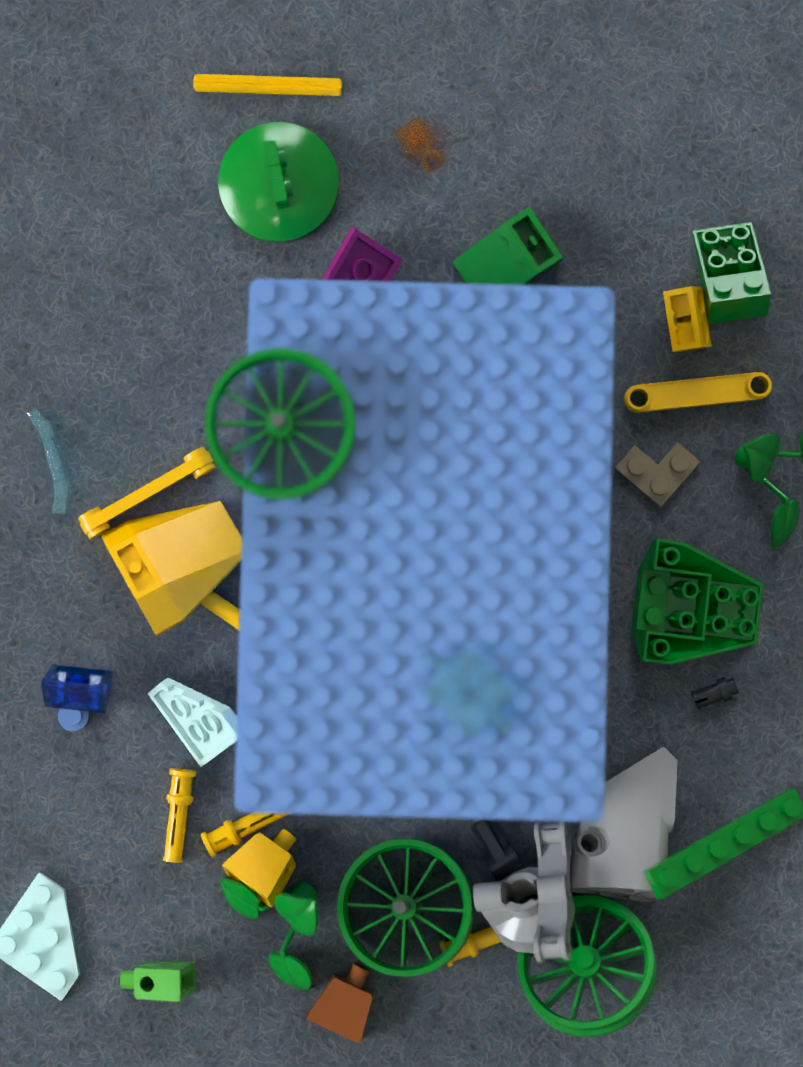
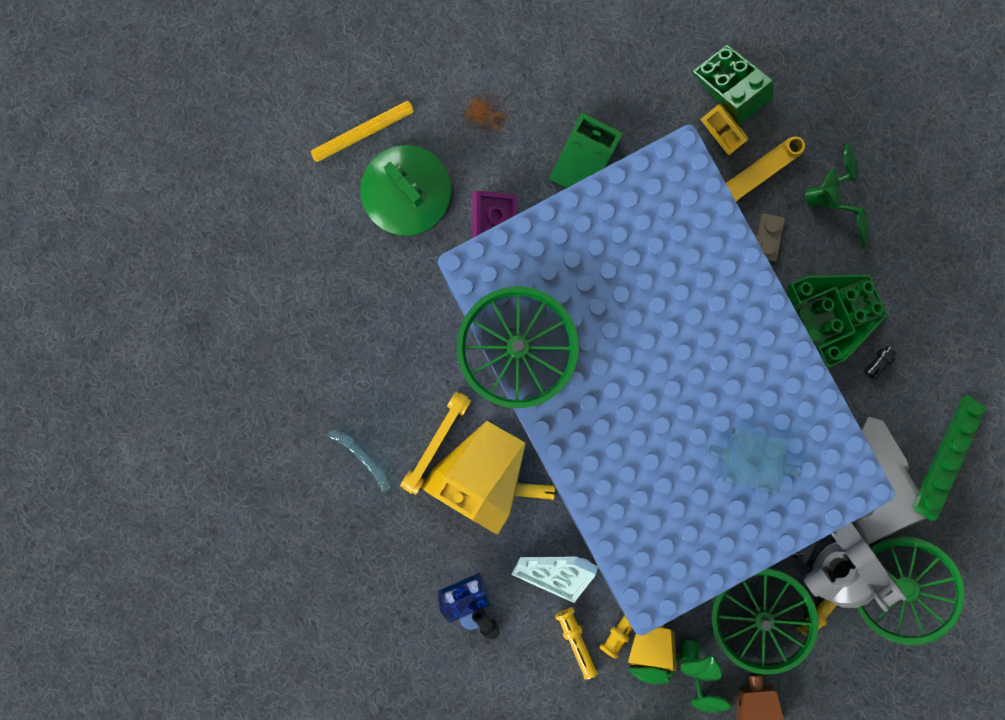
camera: 35 degrees left, 0 degrees up
(86, 737) = (487, 626): none -> black animal

